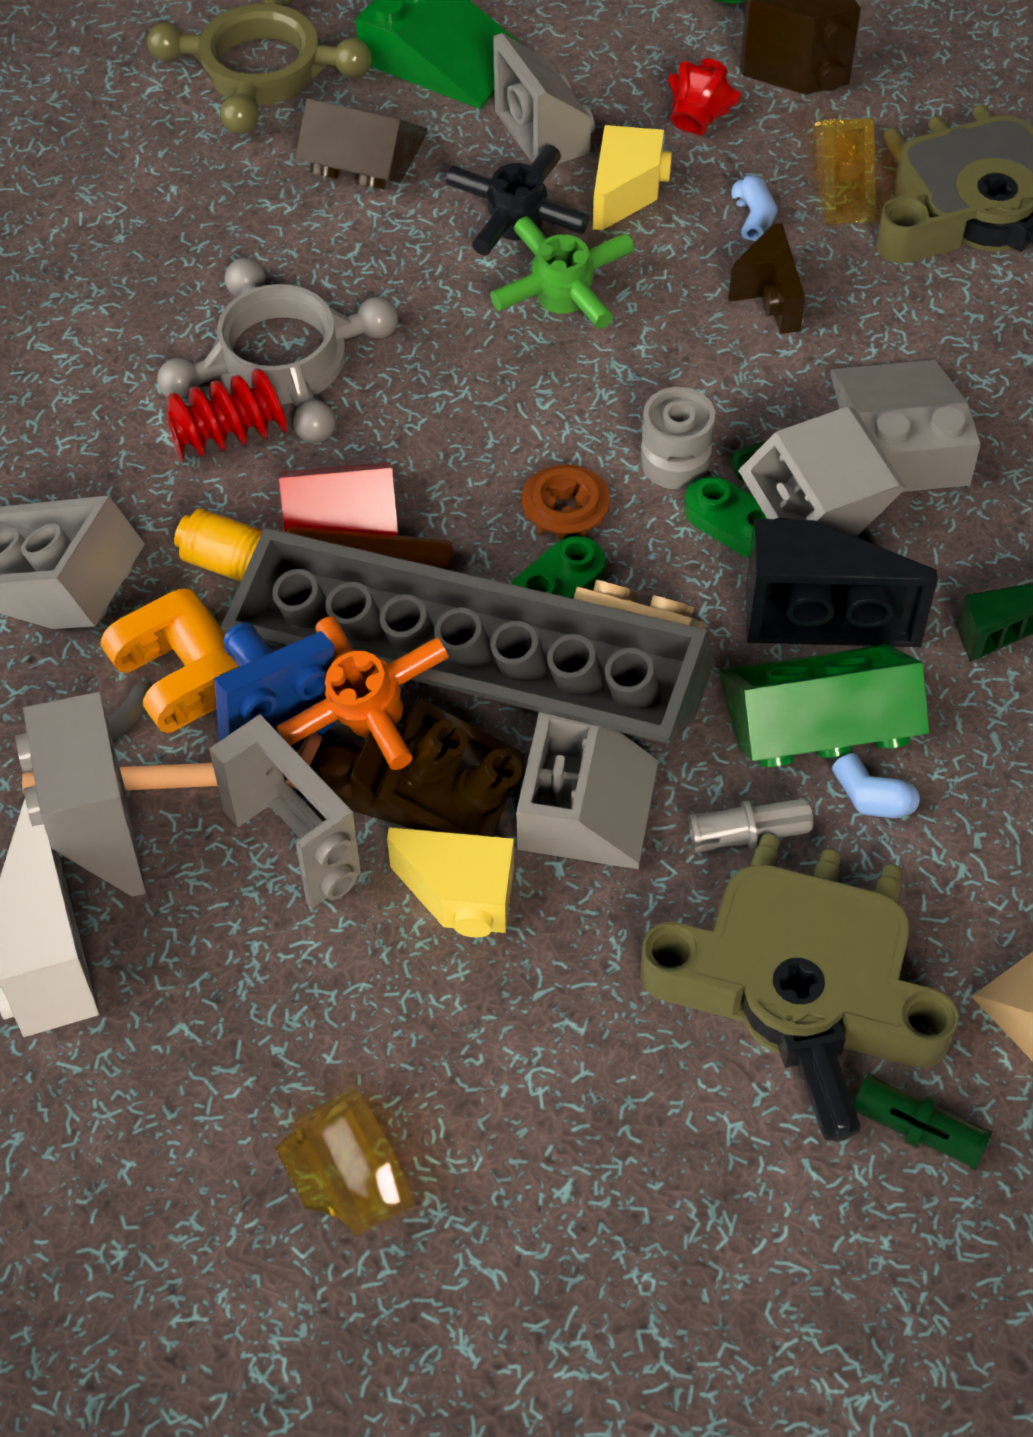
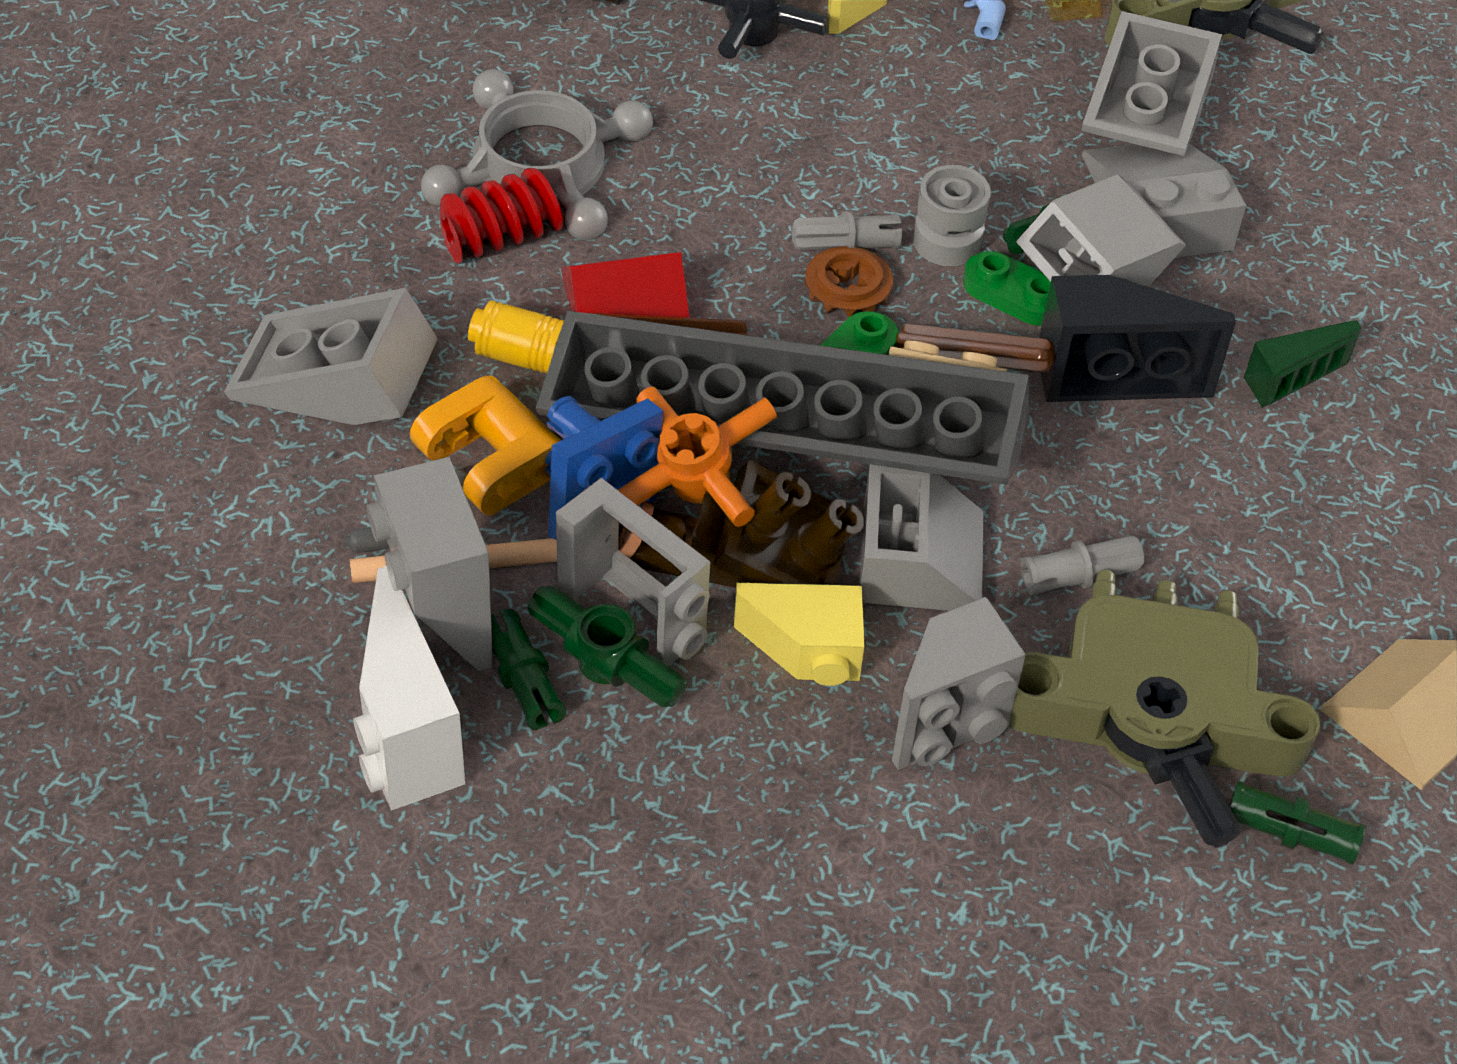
camera: 10 degrees left, 5 degrees down
(172, 900) = (525, 671): none -> dark green pin
(270, 901) = (611, 625): none -> dark green axle
(345, 1164) = (746, 900): clear yellow slope -> none
(562, 273) = (811, 71): bright green bar -> none
(571, 448) = (847, 230): none -> light grey axle
(588, 954) = (958, 685): none -> light grey slope
(678, 584) = (1011, 351): none -> reddish brown axle
(770, 273) = (1015, 65): dark brown slope -> none
(826, 703) = (1137, 450): green slope -> none
(875, 794) = (1195, 530): light blue arm -> none
(909, 304) = (1153, 83): none -> light grey slope

